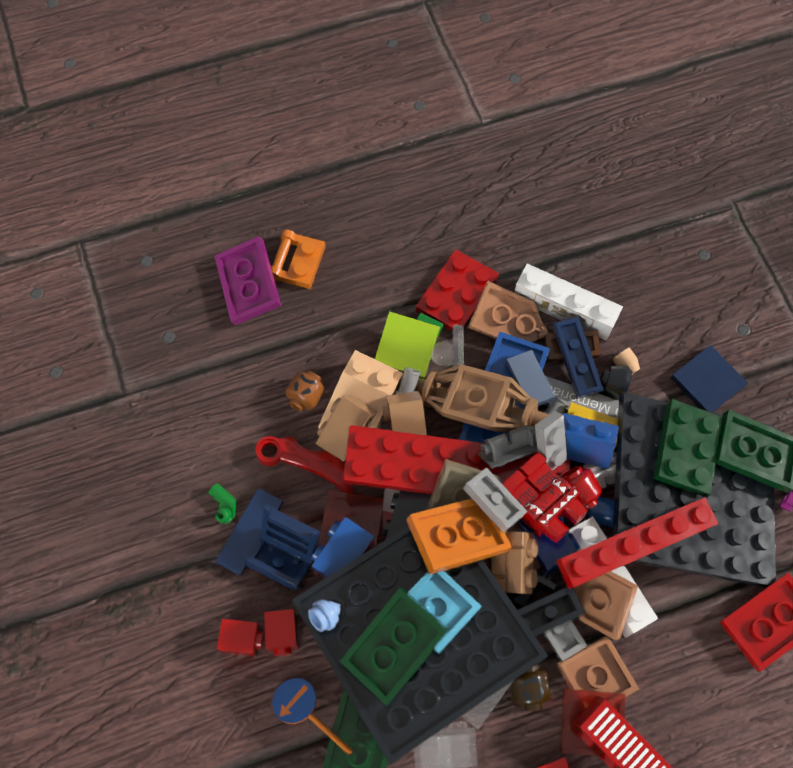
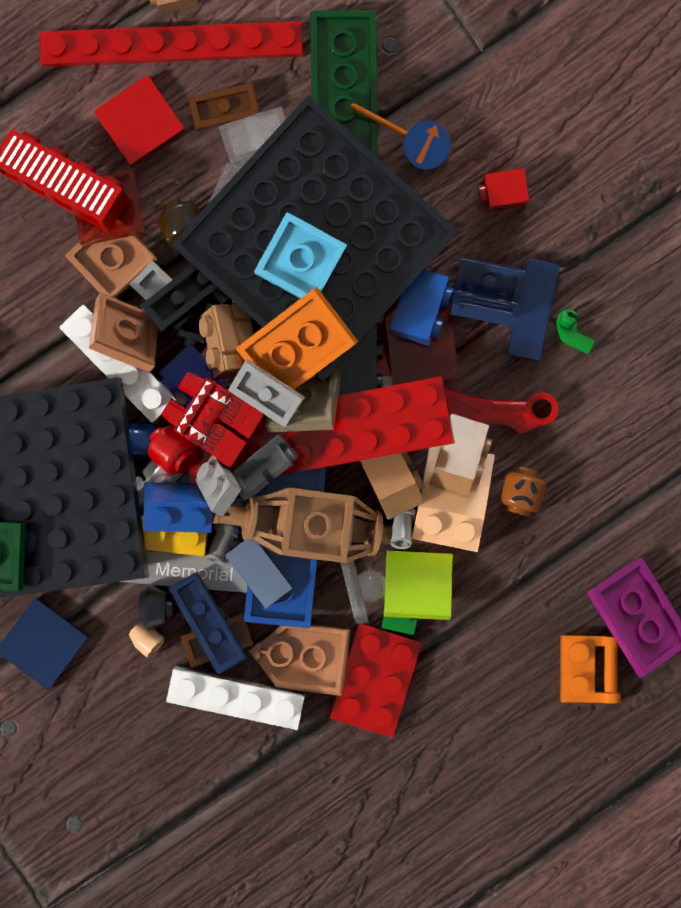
camera: 165 degrees right, 20 degrees up
(281, 632) = (462, 207): red brick -> none
(324, 615) = (417, 221): light blue plate -> none
(394, 646) = (334, 205): dark green plate -> none
(636, 543) = (97, 397): red plate -> none
(688, 448) = (57, 531): dark green plate -> none

